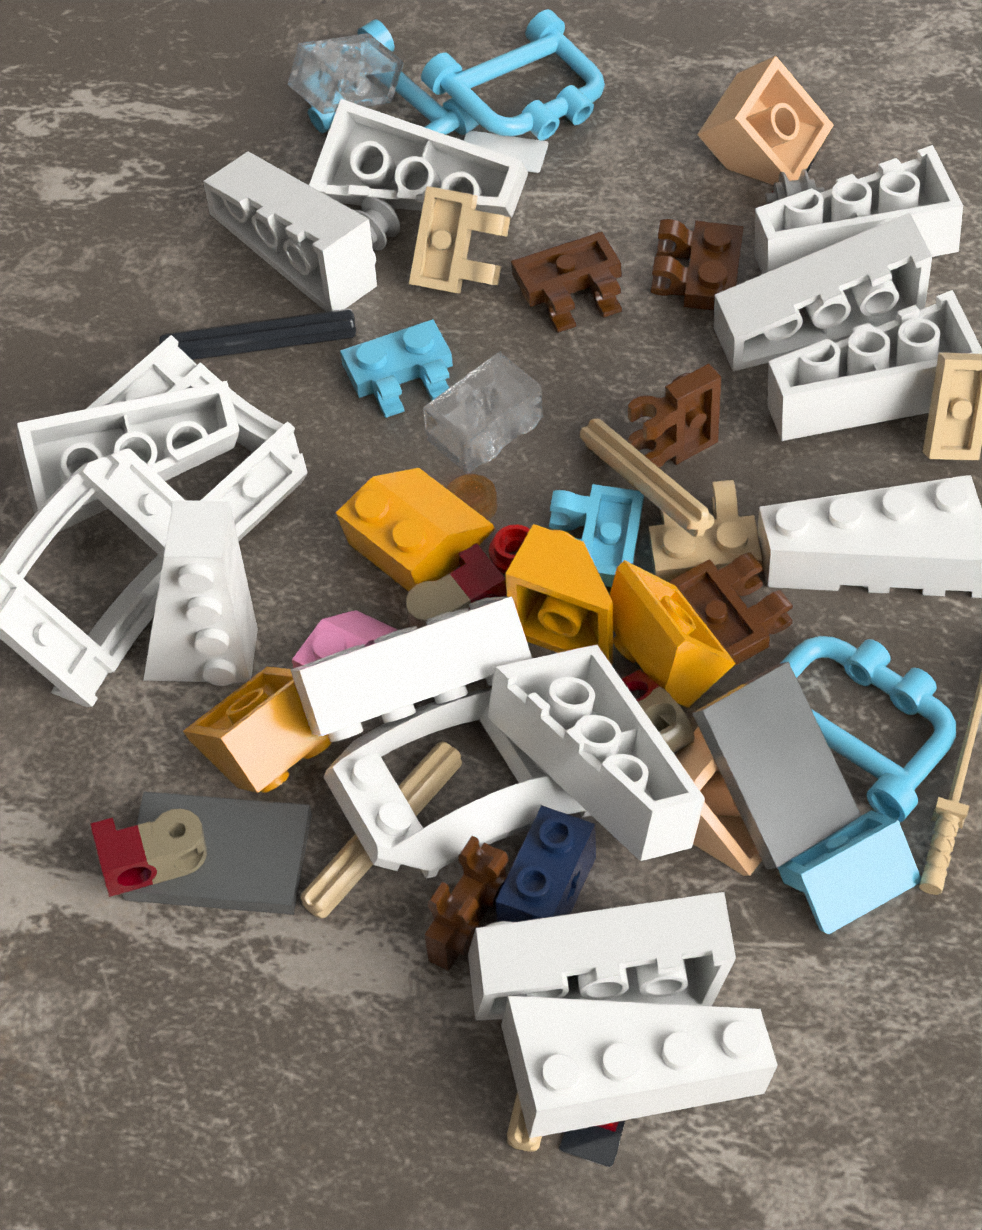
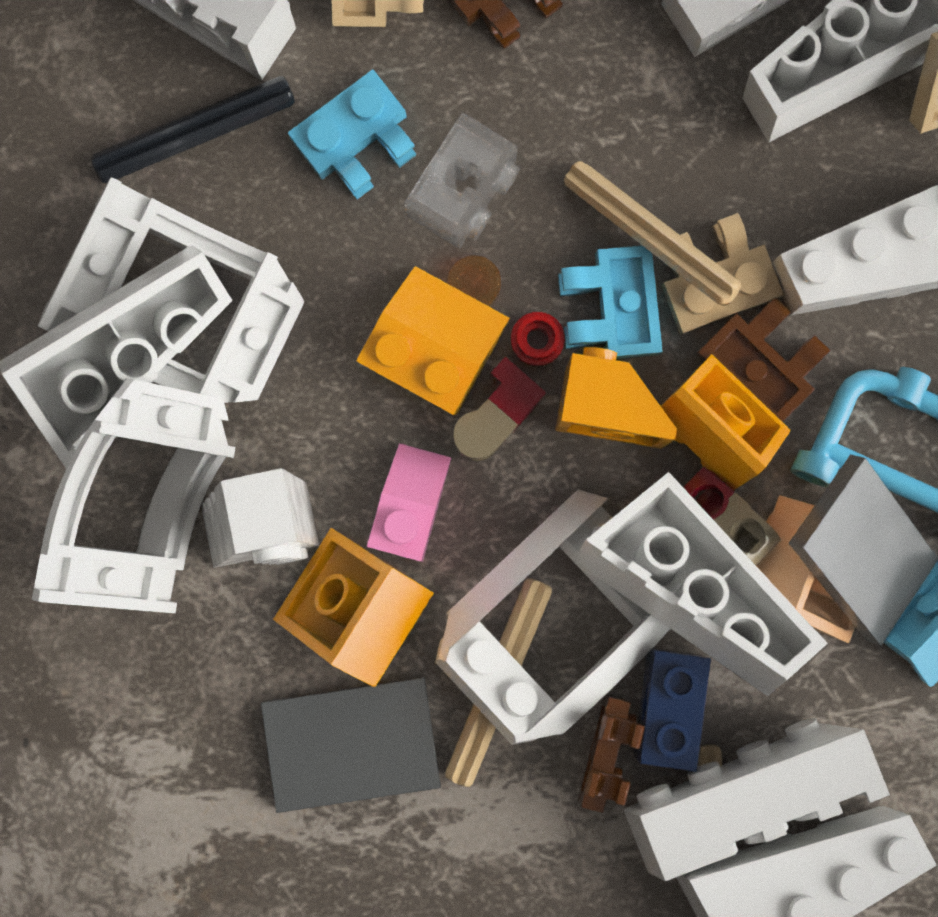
camera: 20 degrees left, 30 degrees up
(149, 851) = (297, 781): leg -> none
(410, 667) = (494, 531): white wedge -> none
(682, 420) = (677, 148): reddish brown plate -> none

